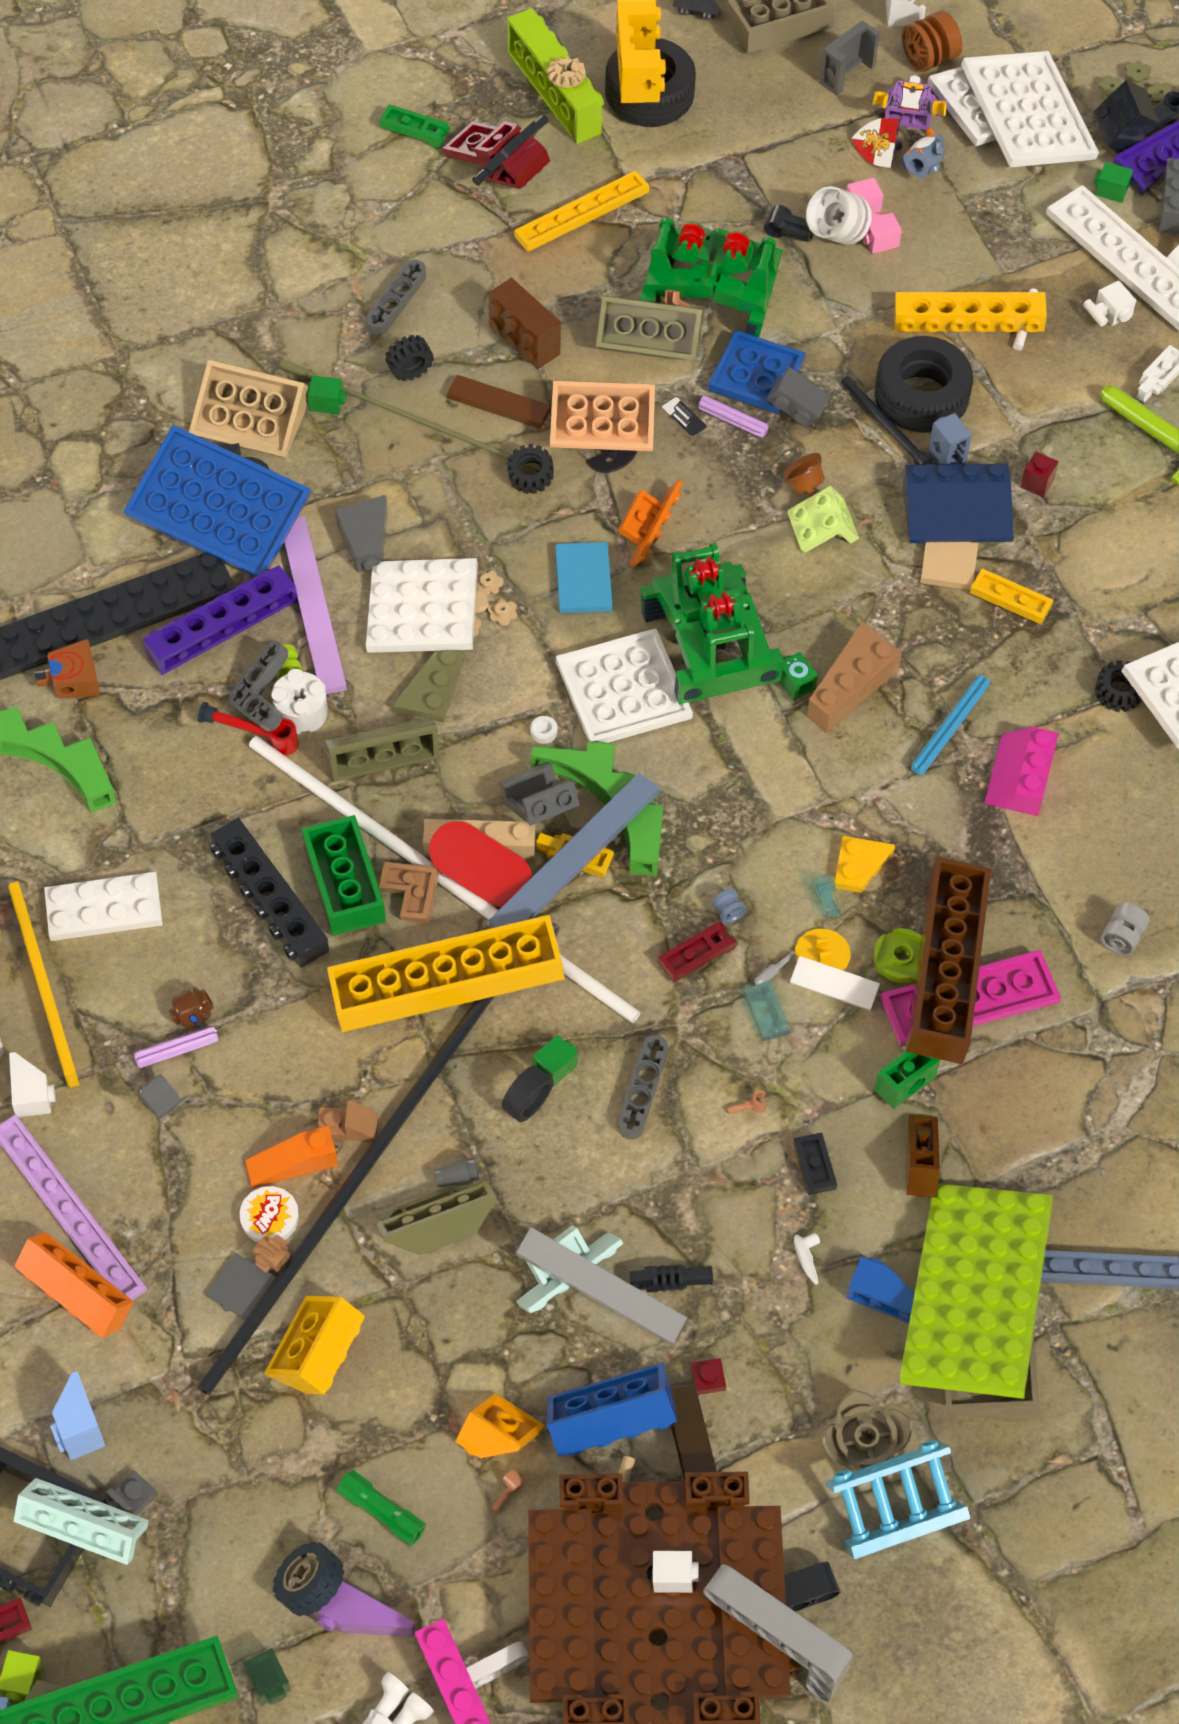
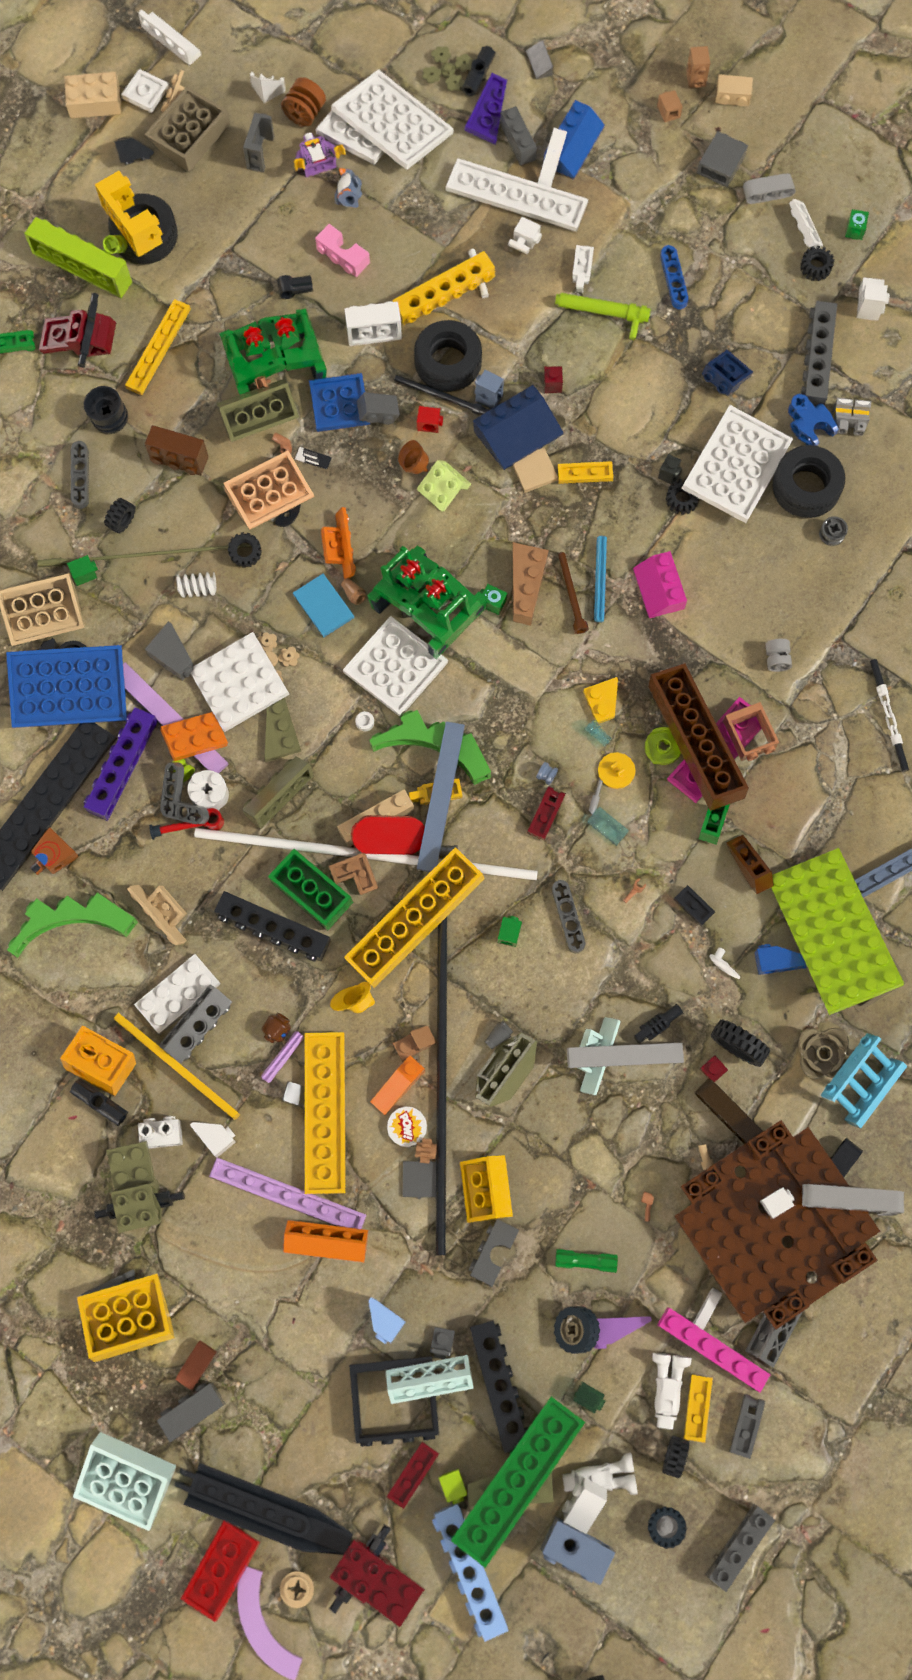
camera: 30 degrees left, 15 degrees up
(54, 953) = (197, 1012): none -> brick
(152, 802) = (162, 910): none -> tan bracket
(179, 1140) = (325, 1113): none -> yellow plate
(183, 1513) = (479, 1334): none -> black brick
(291, 1409) = (500, 1235): none -> dark grey arch
(309, 1030) = (353, 998): none -> yellow piece
(326, 634) = (193, 736): none -> orange plate
(445, 478) = (196, 585): none -> white piece
(472, 242) = (106, 410): none -> black wheel
(497, 1428) = (622, 1174): light orange slope -> none
(498, 401) = (192, 512): reddish brown tile -> none
(527, 1093) = (509, 963): black tyre -> none
(537, 794) = (393, 769): dark grey panel -> none
(566, 79) = (95, 259): tan gear -> none
(602, 76) = (115, 244): none -> lime wheel
(611, 1410) = (677, 1125): blue slope -> none
(630, 580) = (353, 591): none -> medium nougat cone
(660, 381) = (285, 443): none -> nougat arm
(733, 416) = (346, 441): lavender axle -> none
(759, 1352) = (740, 1043): none -> black tyre
(835, 983) = (636, 786): white tile -> none
(838, 215) = (317, 267): white wheel -> none
(853, 442) = (429, 419): none -> red brick
(854, 305) = (373, 323): none -> white brick
(878, 141) = (314, 195): shield -> none
(888, 762) = (580, 625): none -> reddish brown piece
(1028, 970) = (755, 710): none -> nougat window
(1113, 182) = (474, 145): green brick -> none
(1123, 645) = (670, 469): none -> pearl dark grey brick
(1126, 116) = (457, 95): black brick -> none

